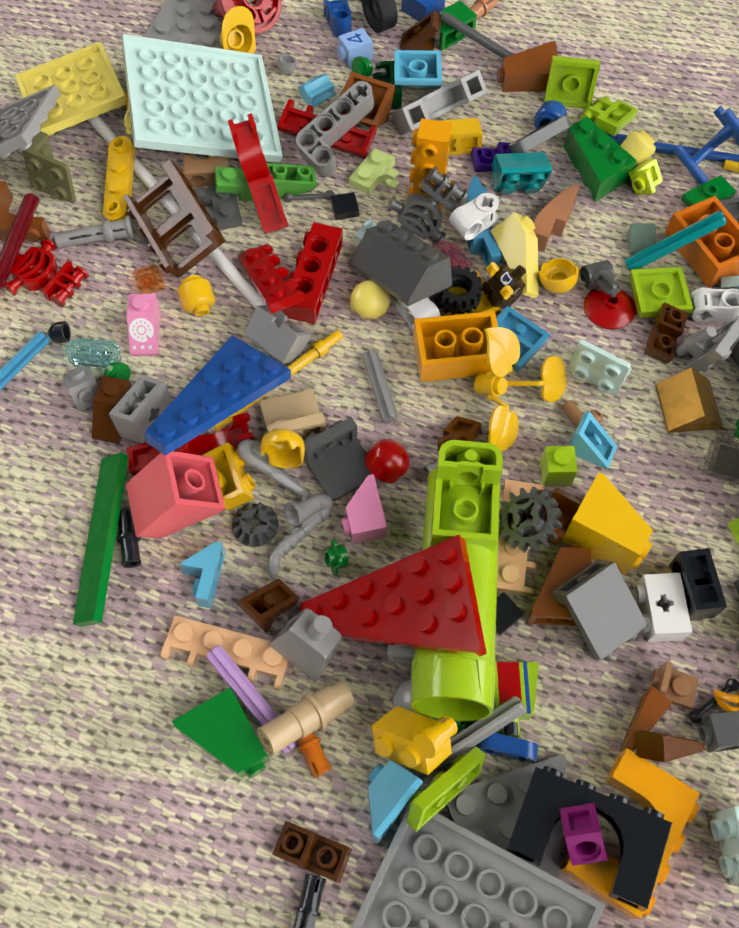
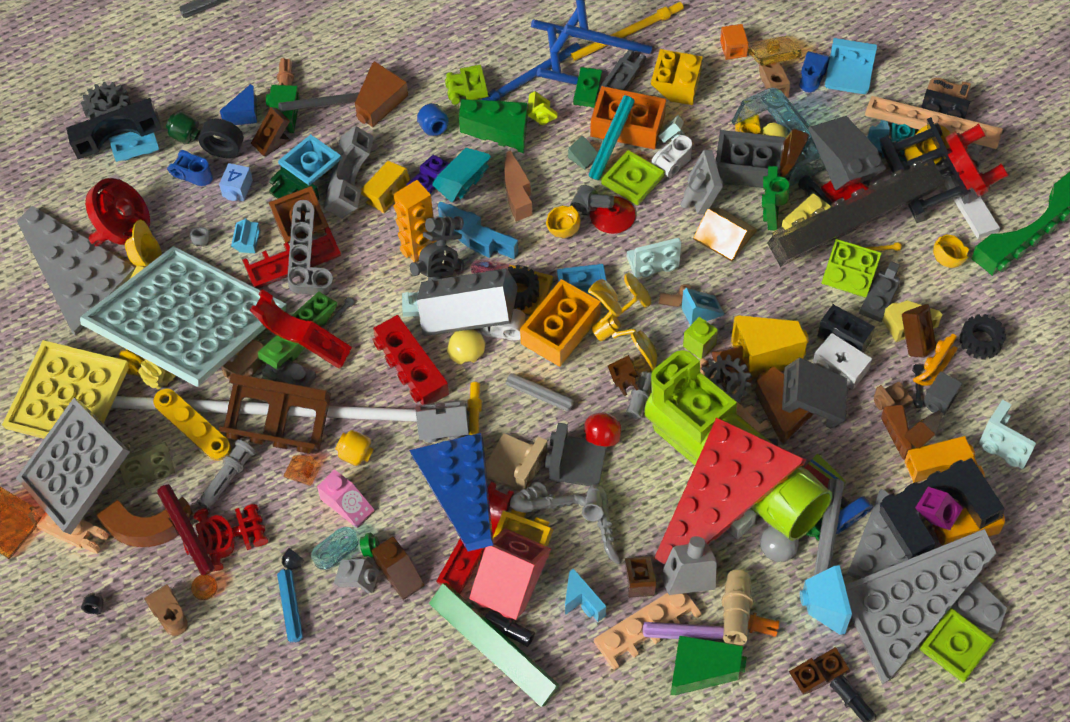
camera: 45 degrees left, 5 degrees down
(140, 408) = (420, 546): light grey brick -> none
(262, 533) = (569, 554): dark grey gear -> none
(268, 279) = (391, 392): red hinge -> none
(283, 448) = (544, 478): yellow hair -> none
(336, 556) = (642, 512): green plate -> none
(344, 206) = (370, 300): black tile -> none
(362, 66) = (258, 193): green plate -> none
(365, 514) = (628, 471): bright pink slope -> none
(375, 170) = (359, 259): yellowish green plate -> none
(413, 739) = (805, 555): yellow hinge -> none
(444, 788) = (848, 562): lime plate -> none
(475, 216) = (477, 228): white piece -> none
(504, 285) = (542, 257): dark brown piece -> none
(520, 247) = (522, 225): light yellow slope -> none
(540, 135) = (447, 138): beam -> none
(572, 81) = (421, 82): lime plate -> none
(639, 145) = (513, 90): light yellow head -> none
(664, 333) = (663, 199): reddish brown slope -> none

